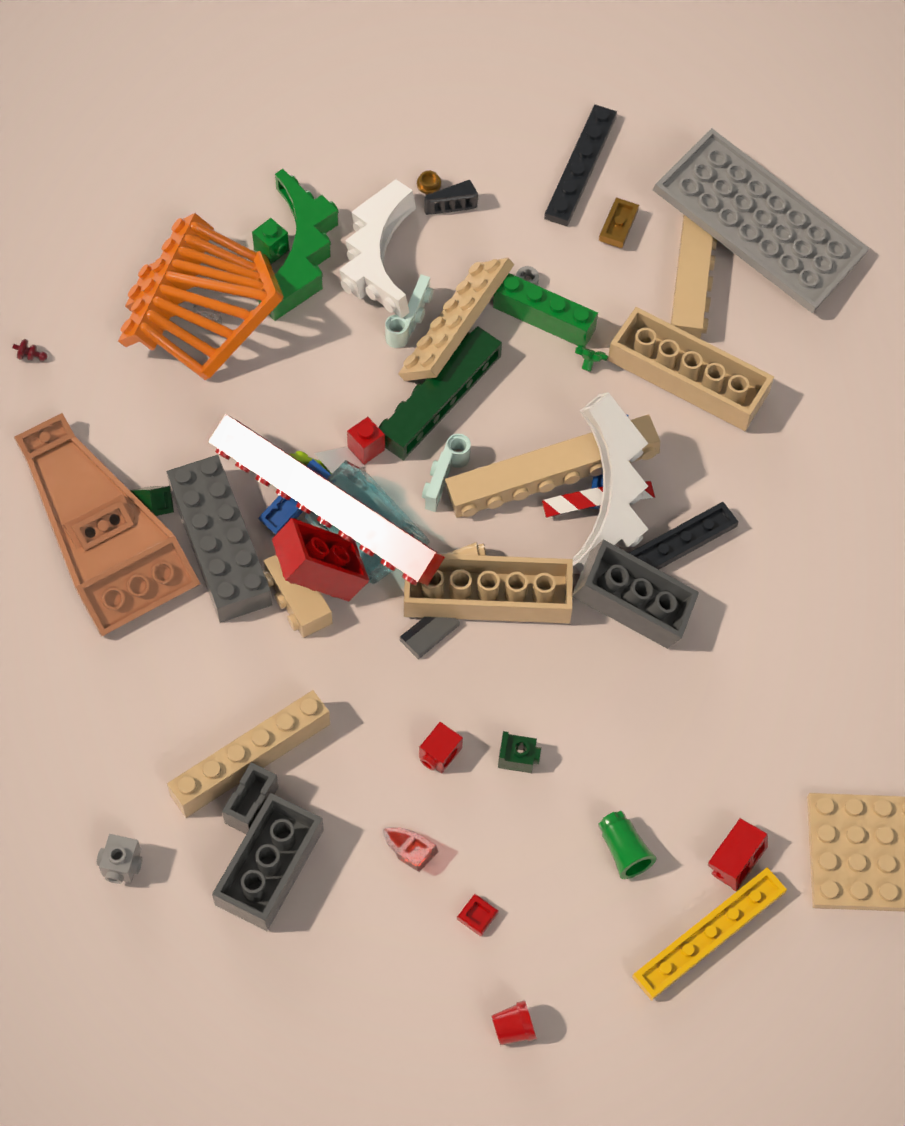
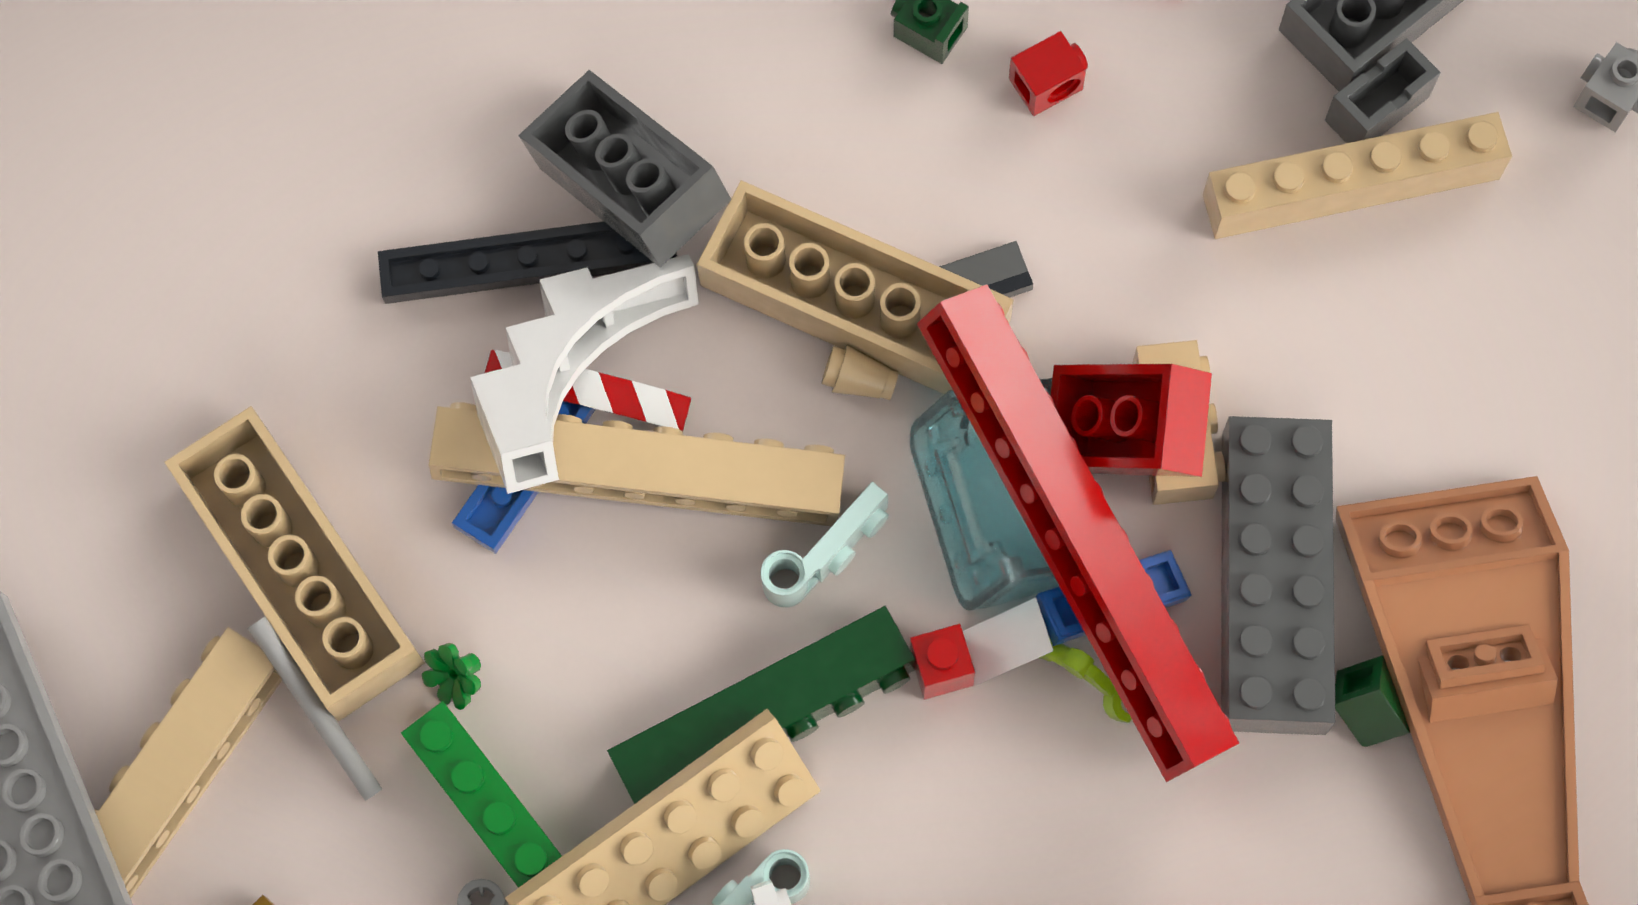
camera: 150 degrees left, 10 degrees up
(627, 310) = (315, 709): none -> light grey bar

